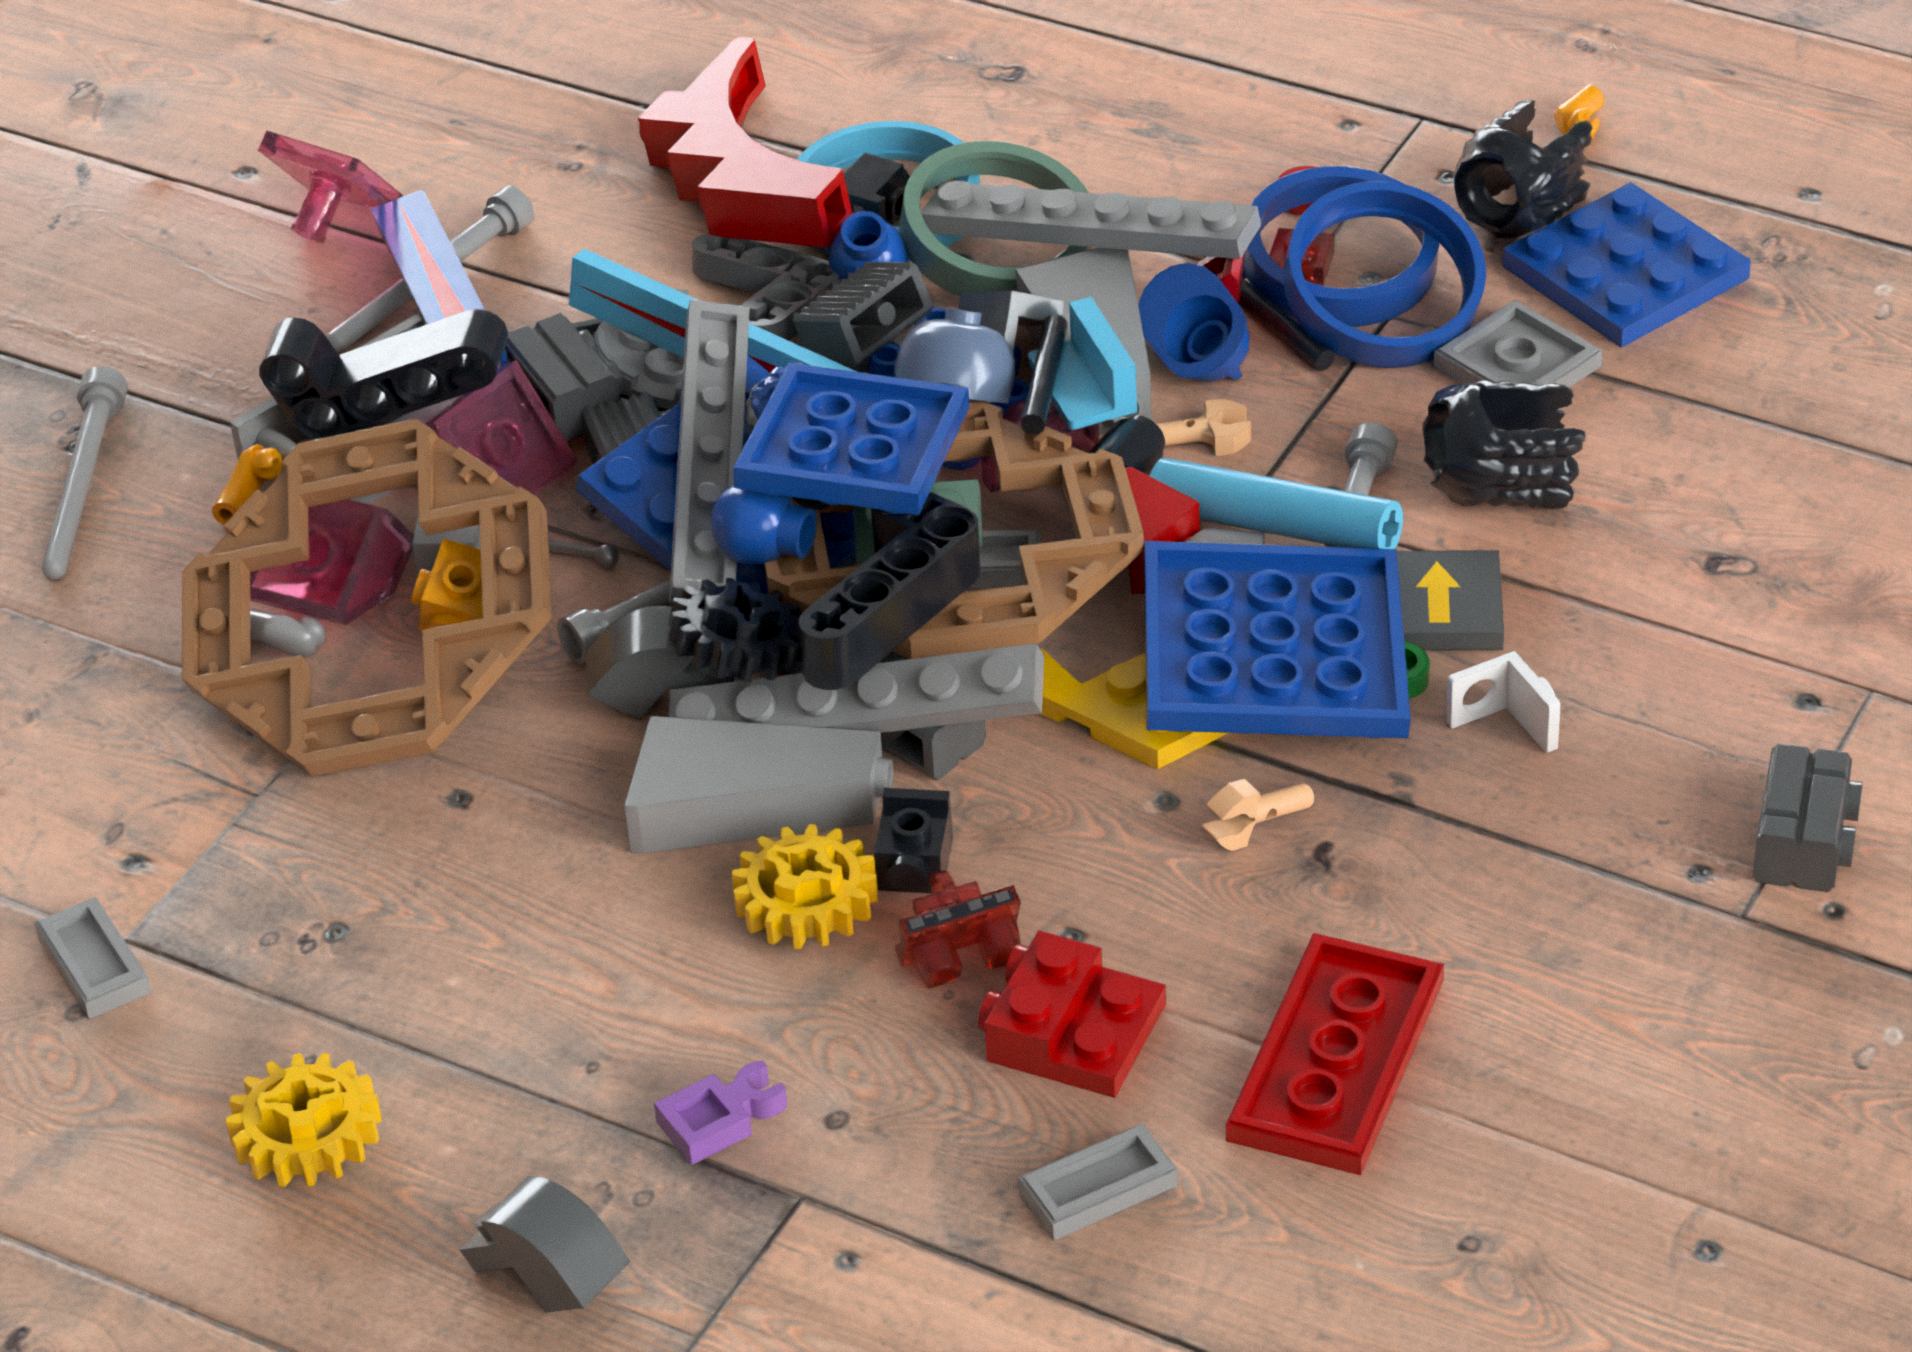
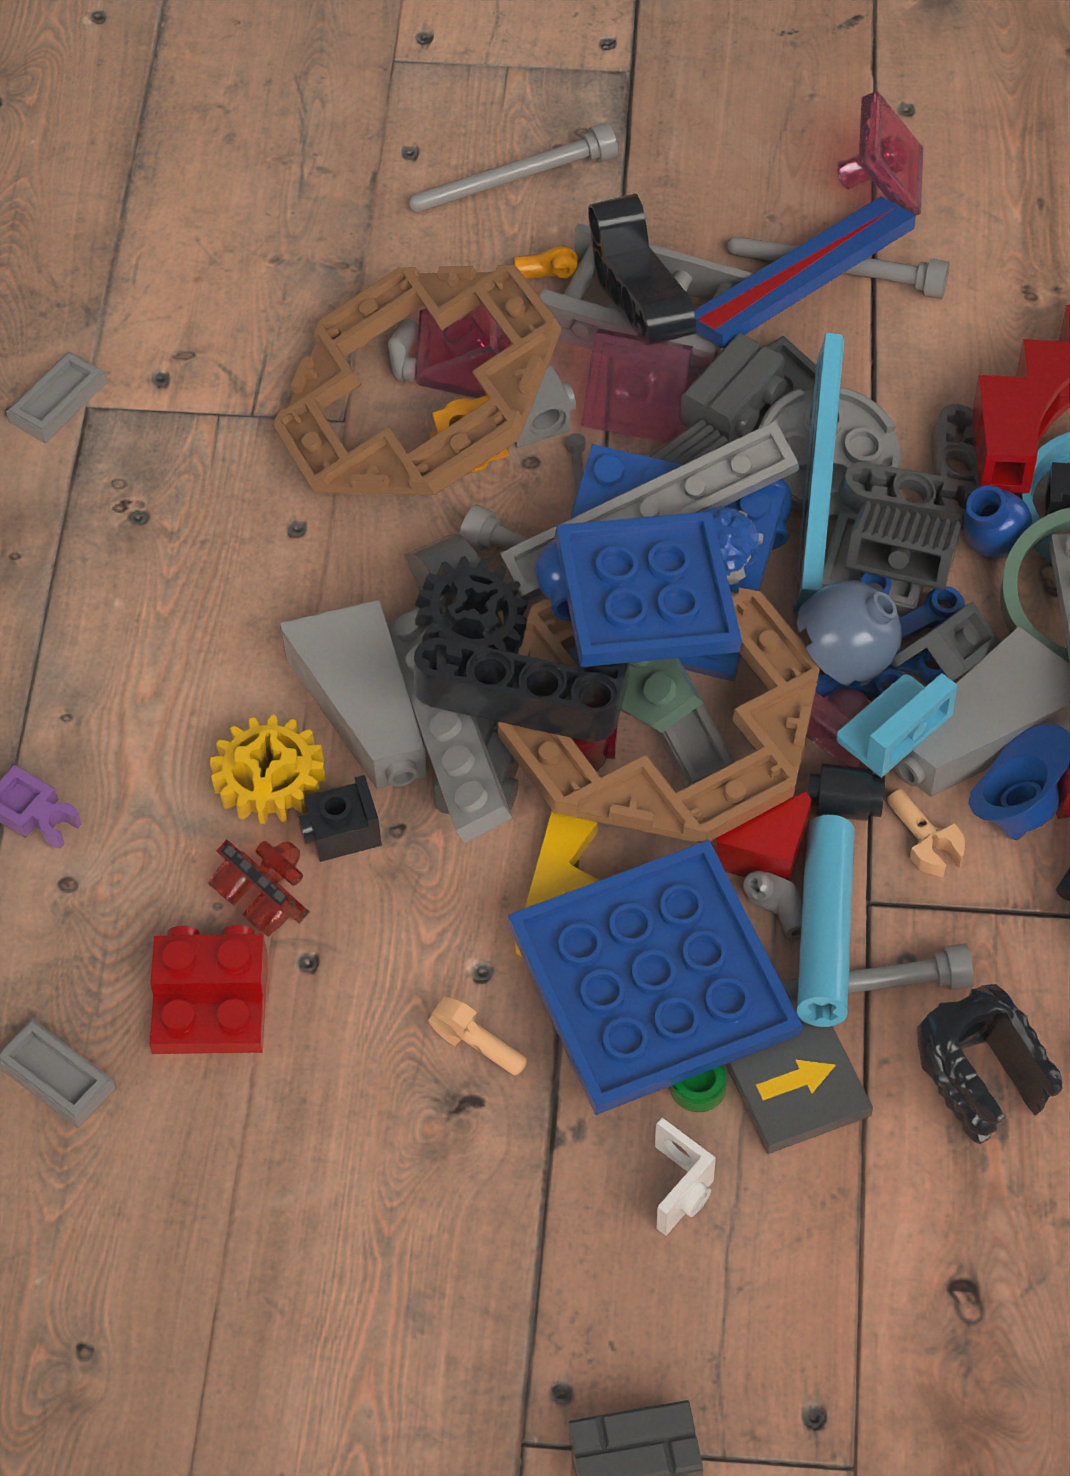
camera: 65 degrees right, 15 degrees up
(1044, 374) = (863, 693): black bar -> none
(1335, 1053) = (244, 1187): red tile -> none

